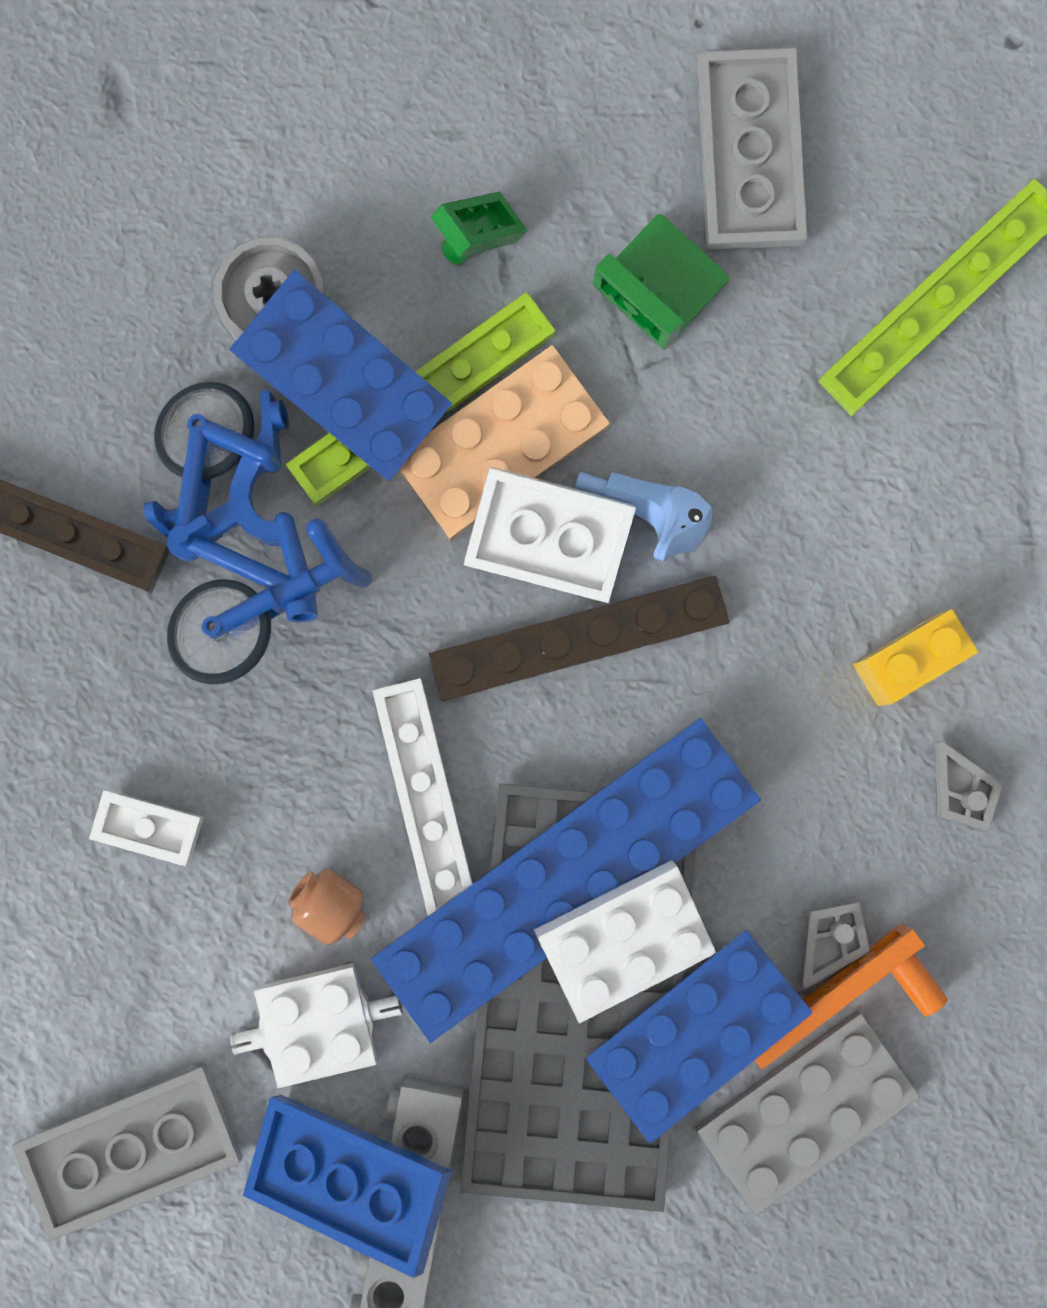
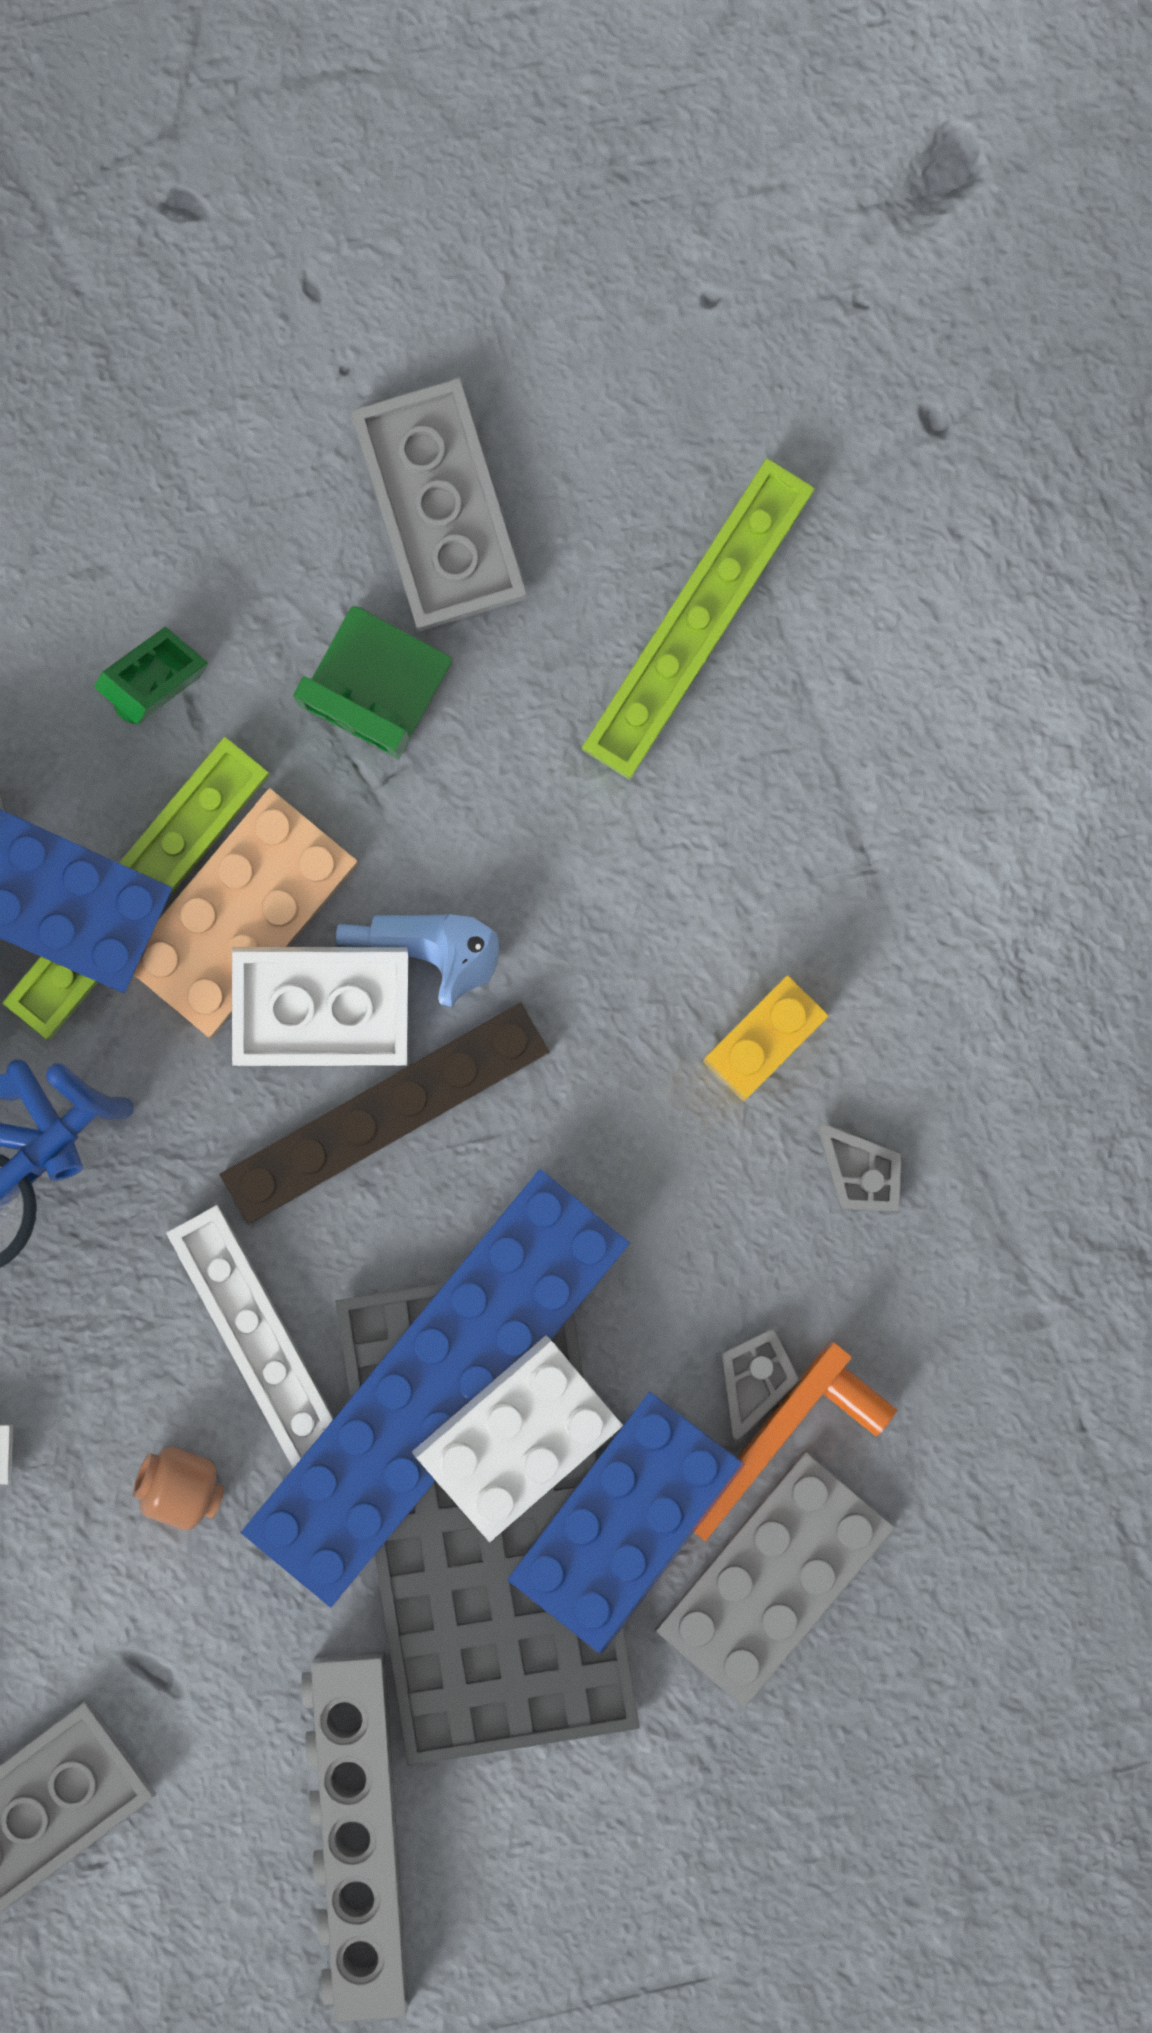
camera: 10 degrees left, 0 degrees up
(316, 1025) = (200, 1624): white plate -> none
(347, 1185) = (277, 1785): blue plate -> none

